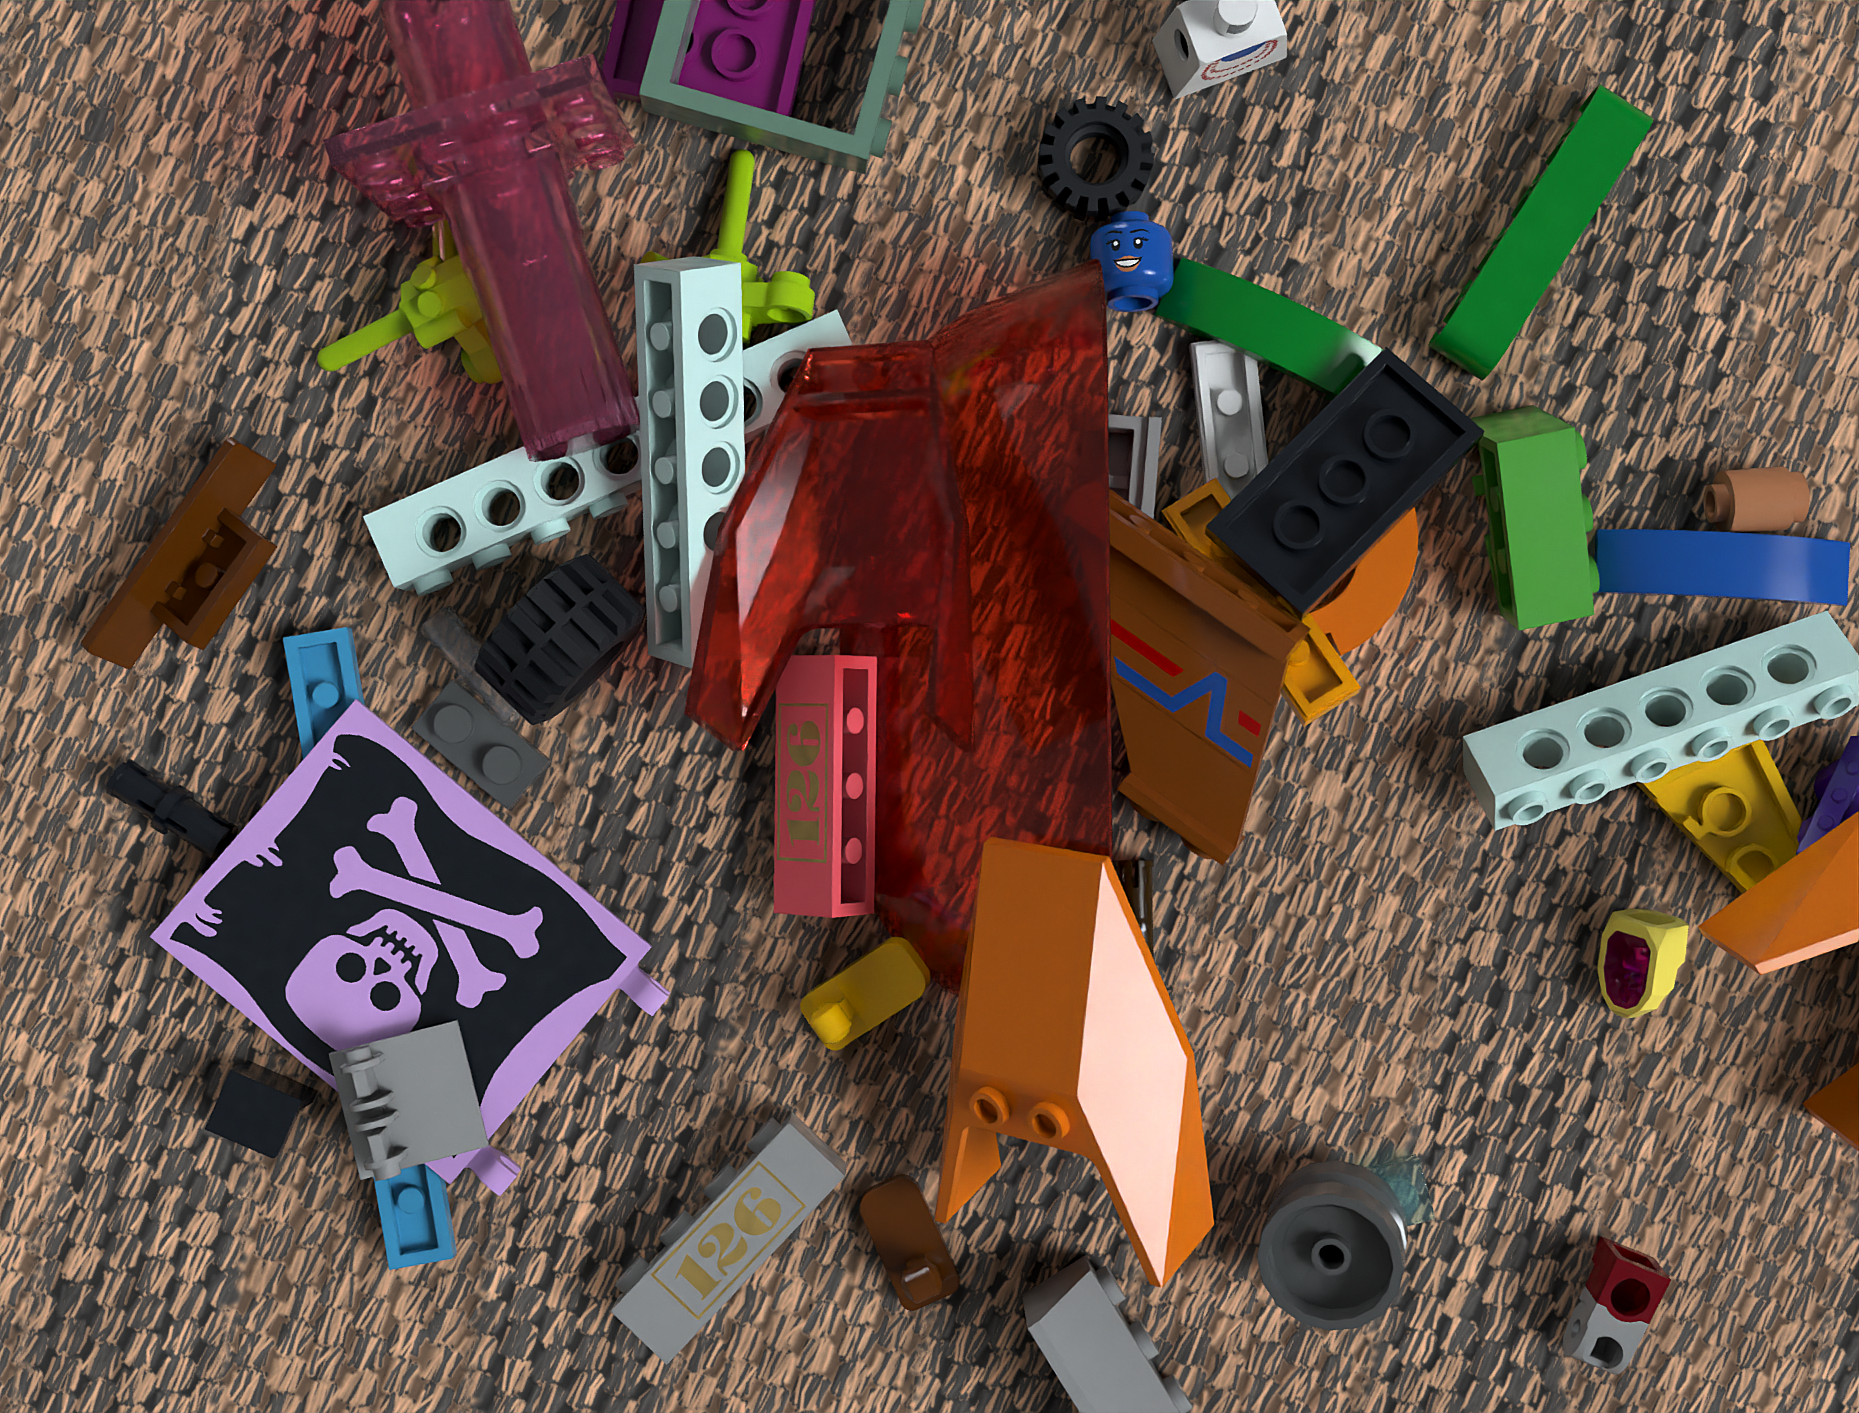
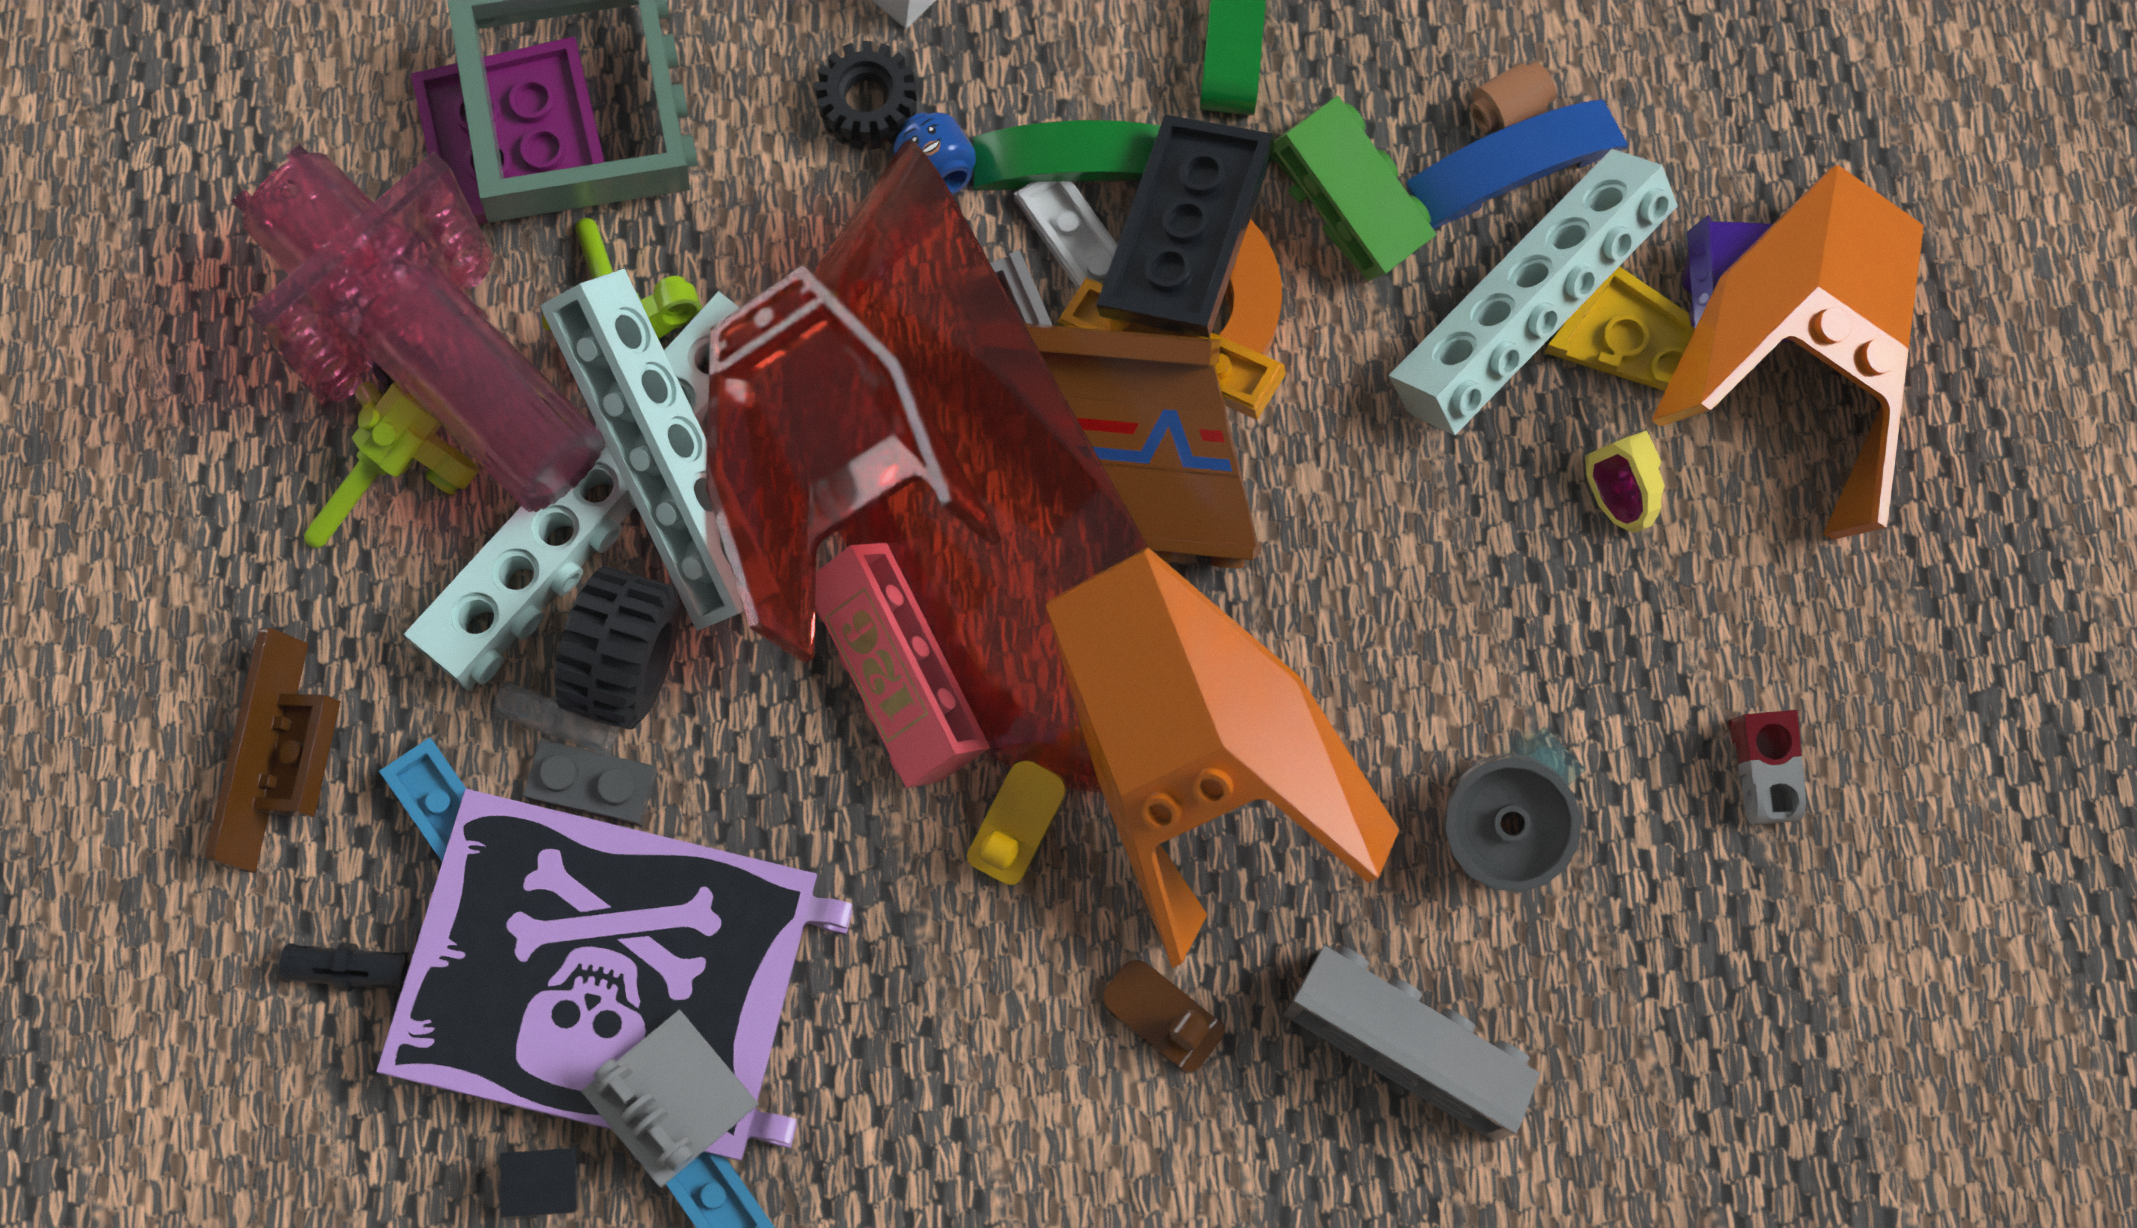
camera: 30 degrees left, 15 degrees down
(728, 1237) = (1005, 1085): light grey brick -> none

